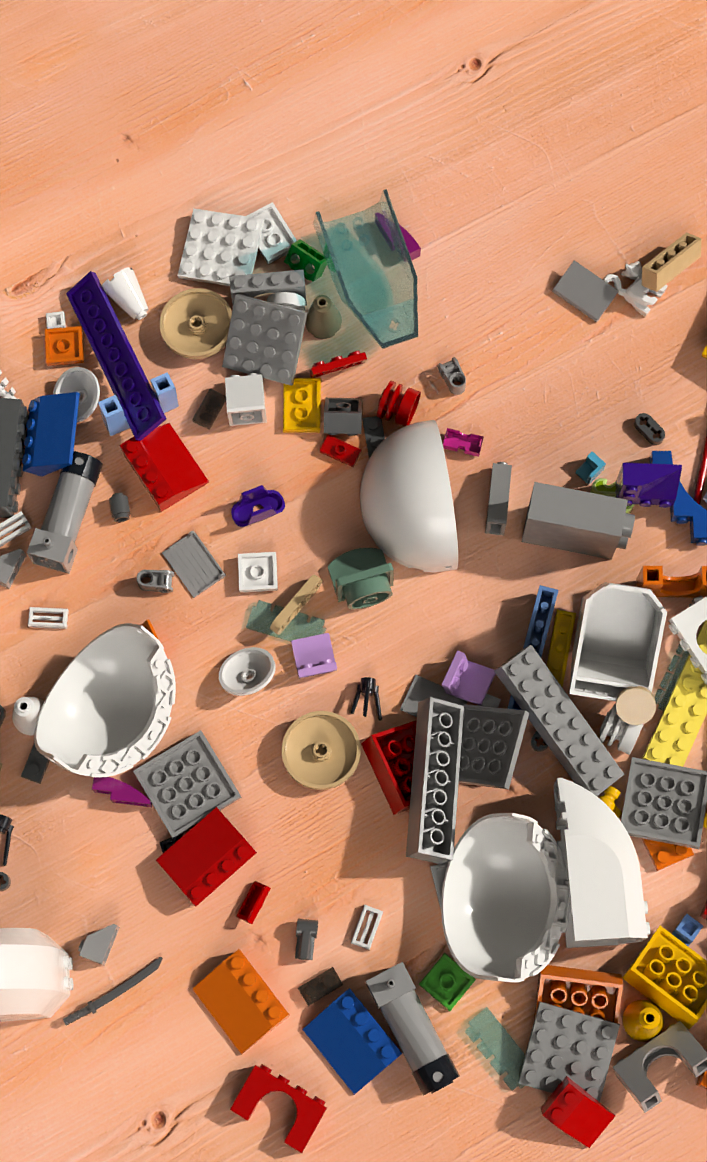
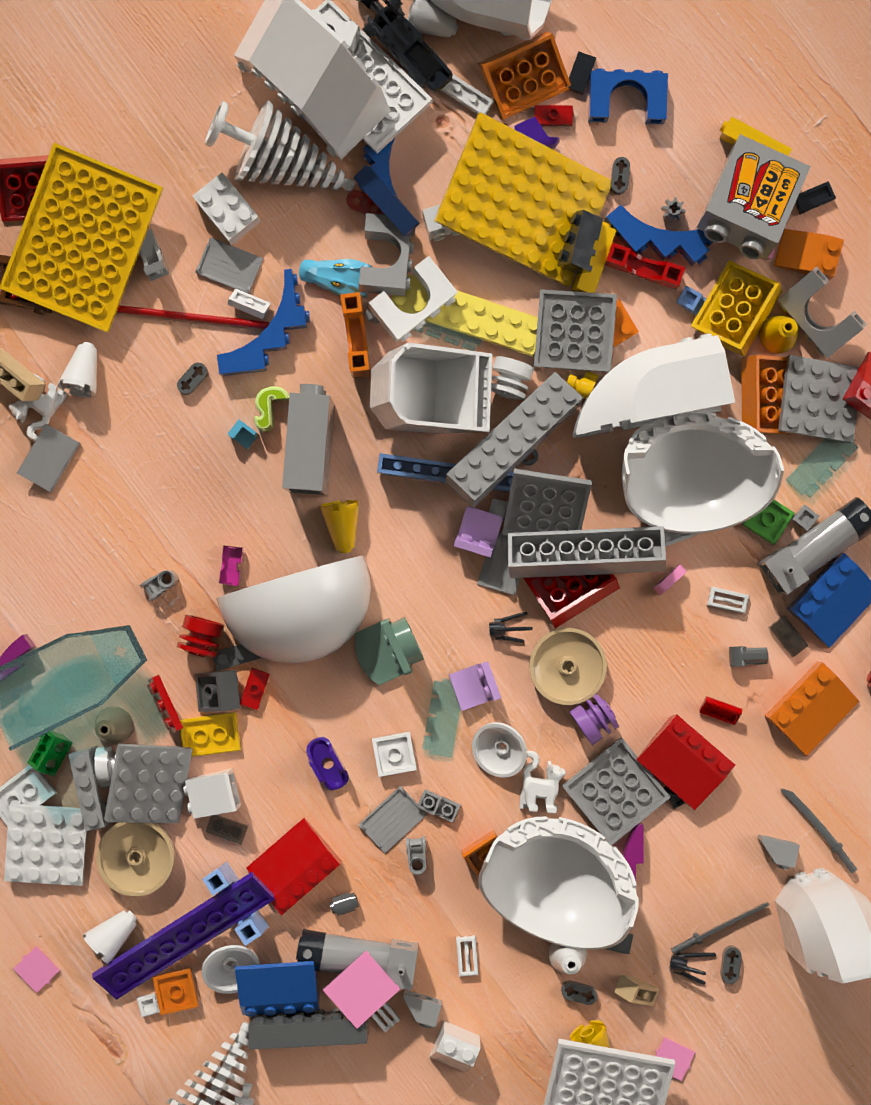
camera: 95 degrees left, 15 degrees up
(23, 847) = (697, 939): none -> dark grey sword
(36, 505) = (361, 989): none -> bright pink piece
(106, 229) = (36, 969): none -> bright pink piece
(200, 609) = (439, 805): none -> light grey slope
(202, 707) = (540, 788): none -> white animal
(263, 767) = (594, 719): none -> medium lavender wheel
(296, 604) = (424, 711): tan beam -> none
(396, 868) = (670, 579): none -> bright pink beam
(443, 1021) = (805, 517): none -> light grey plate
(492, 548) = (342, 523): none -> yellow cone
(498, 498) = (287, 522): light grey slope -> none
(560, 644) = (432, 446): yellow tile -> none
(635, 705) = (493, 366): tan tile -> none
(648, 484) = (263, 374): dark purple slope -> none
(665, 327) = (81, 372): none -> white cone

